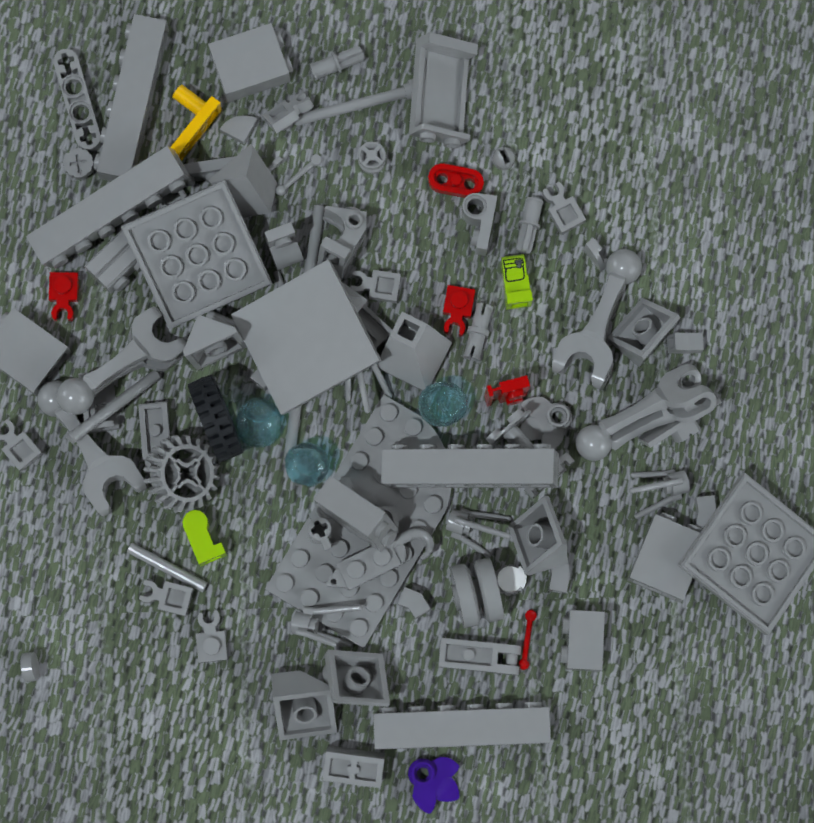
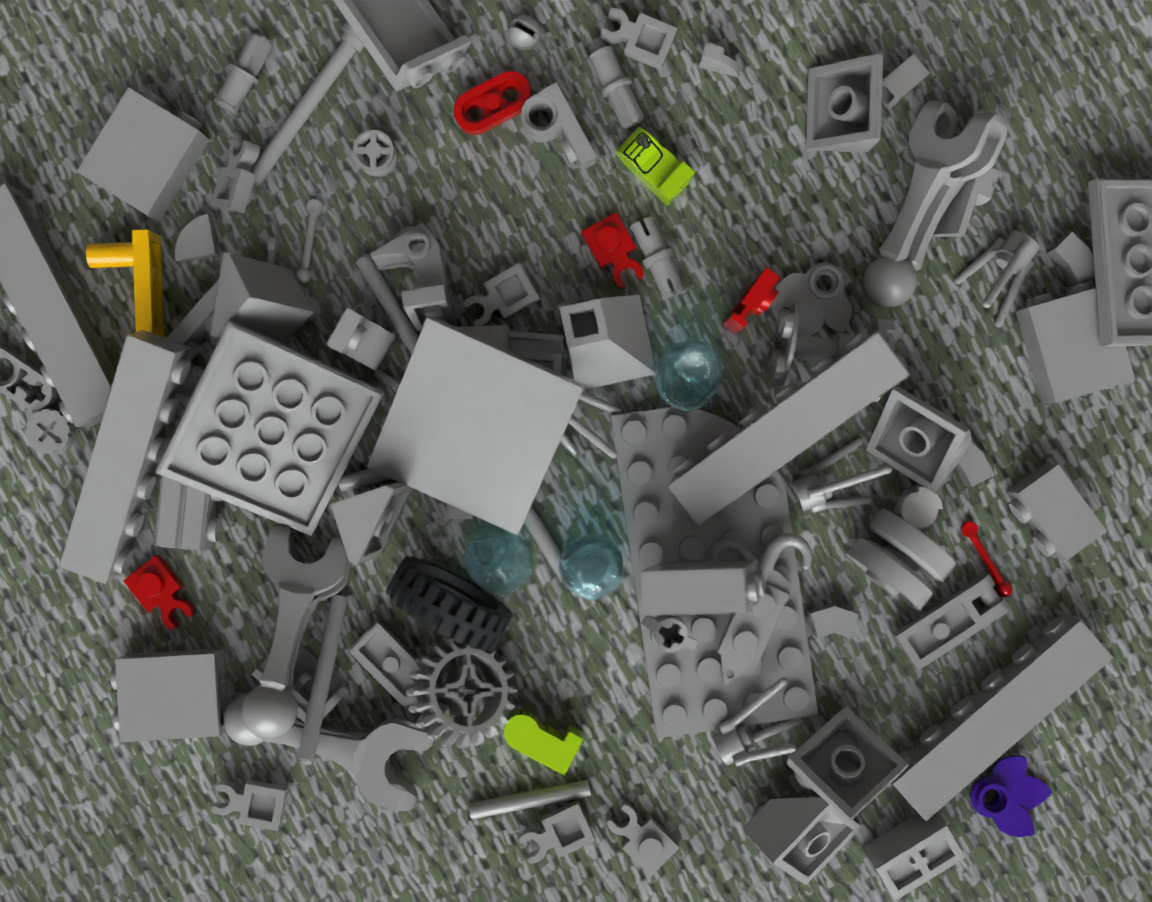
camera: 25 degrees left, 10 degrees up
(622, 269) = (764, 52): light grey piece -> none

